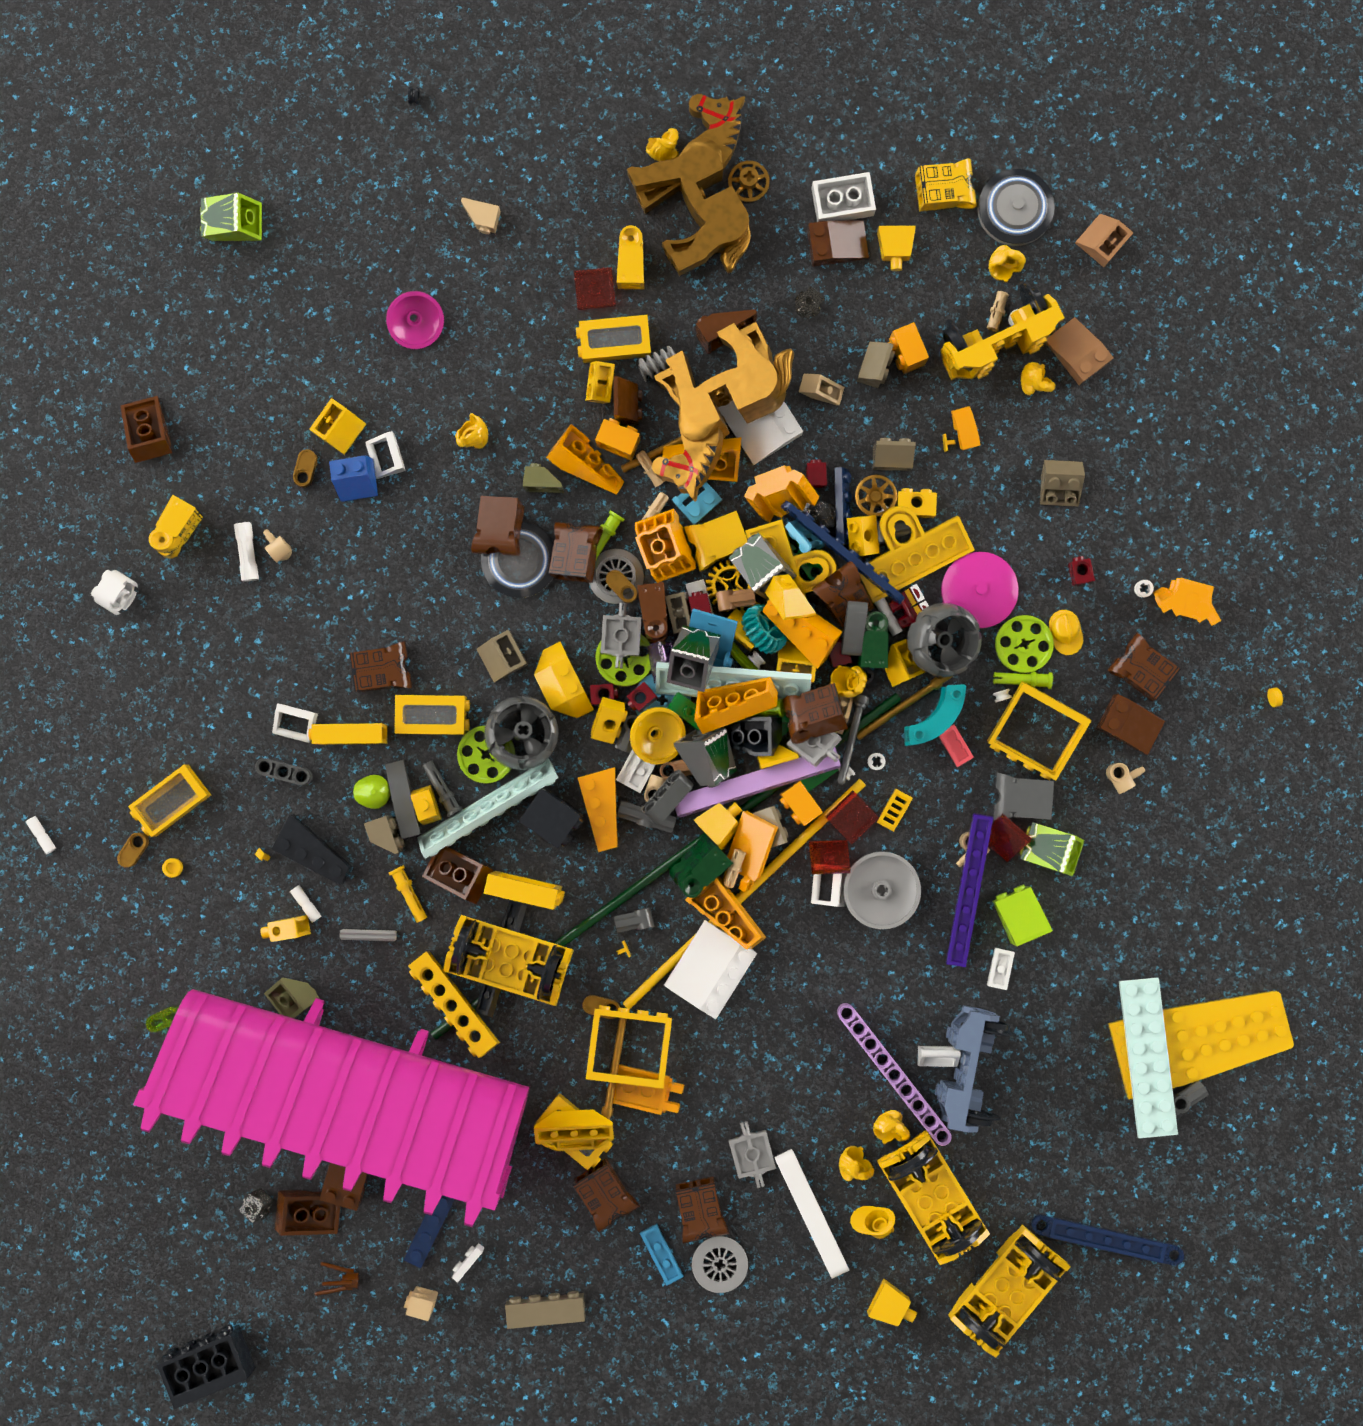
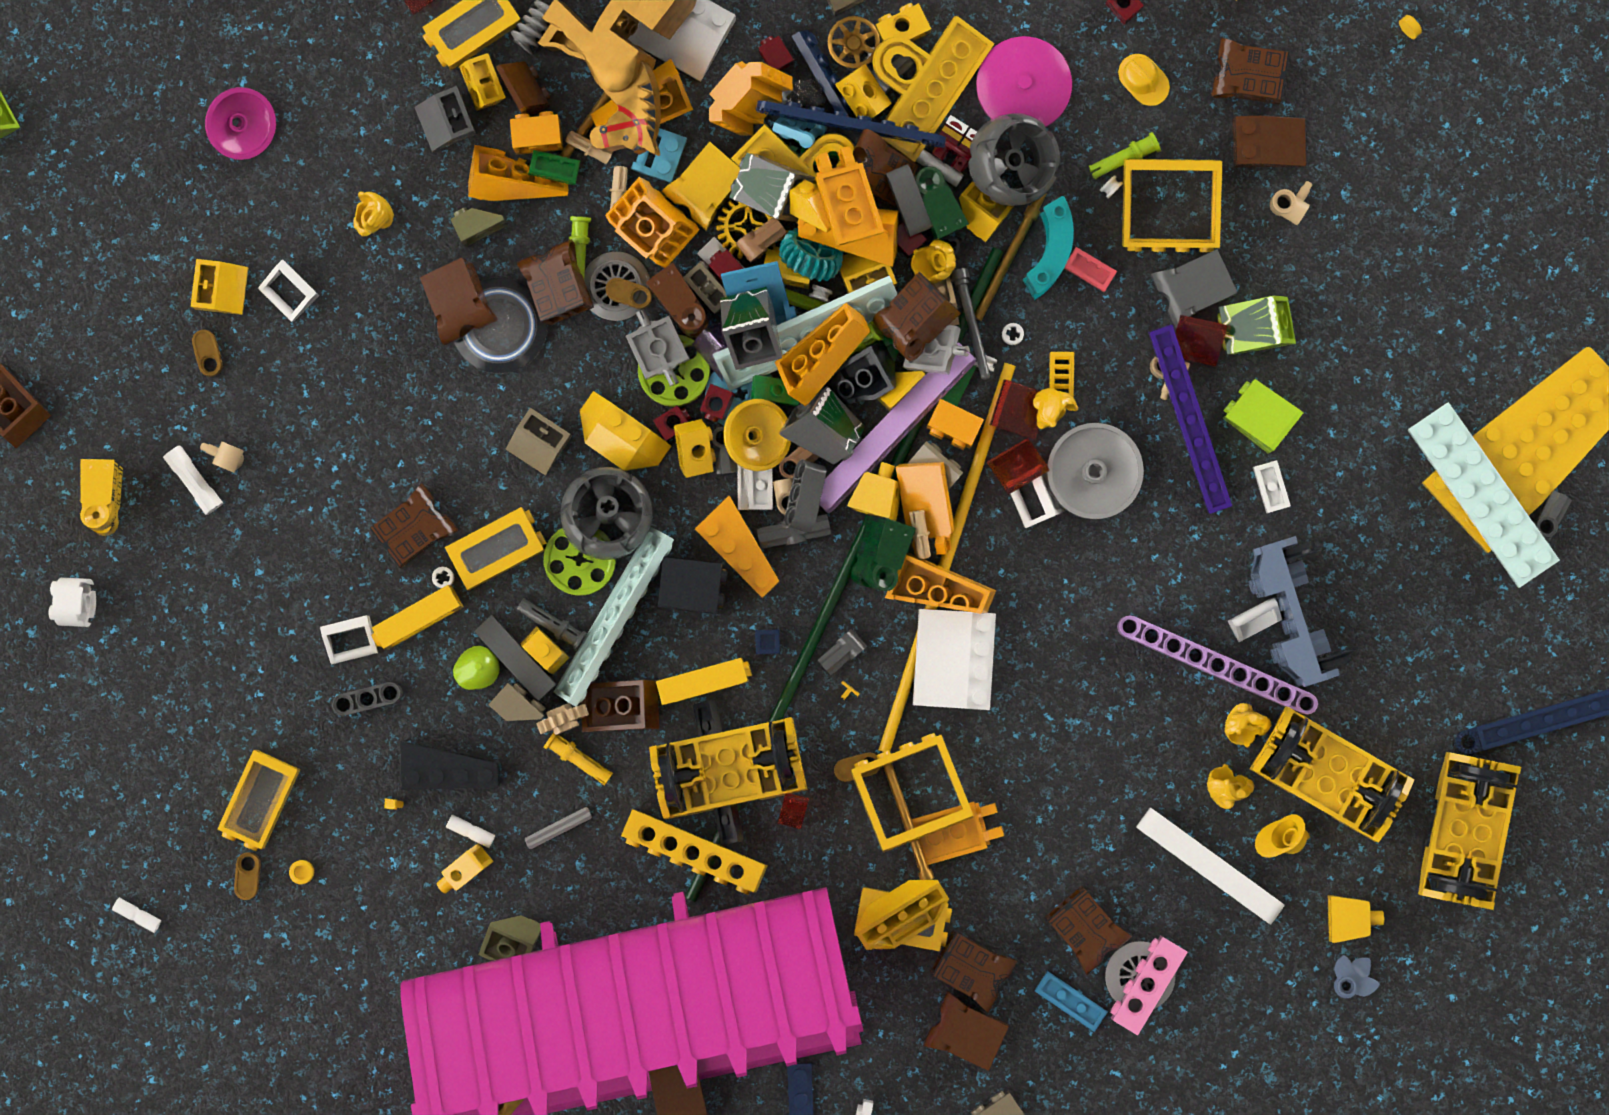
camera: 30 degrees left, 0 degrees up
(160, 1015) = (388, 1046): clear neon green beam -> none
(354, 478) = (268, 334): blue slope -> none
(384, 709) = (440, 570): none -> white bush
(411, 861) = (562, 719): none -> tan gear
(538, 1014) = (793, 811): none -> clear red slope
(560, 394) = (445, 119): none -> dark grey slope
(576, 1238) = (966, 1032): none -> reddish brown piece
(585, 884) = (767, 641): none -> dark blue plate
(617, 469) = (554, 167): none -> green plate
(700, 1295) = (1161, 978): none -> bright pink brick
(752, 1154) = (1110, 837): light grey plate -> none
(811, 604) = (847, 198): none -> light orange tile
(873, 1347) = (1356, 974): none -> sand blue plate
(876, 828) = (1052, 406): none -> yellow hair
(1032, 648) = (1102, 106): lime wedge -> none

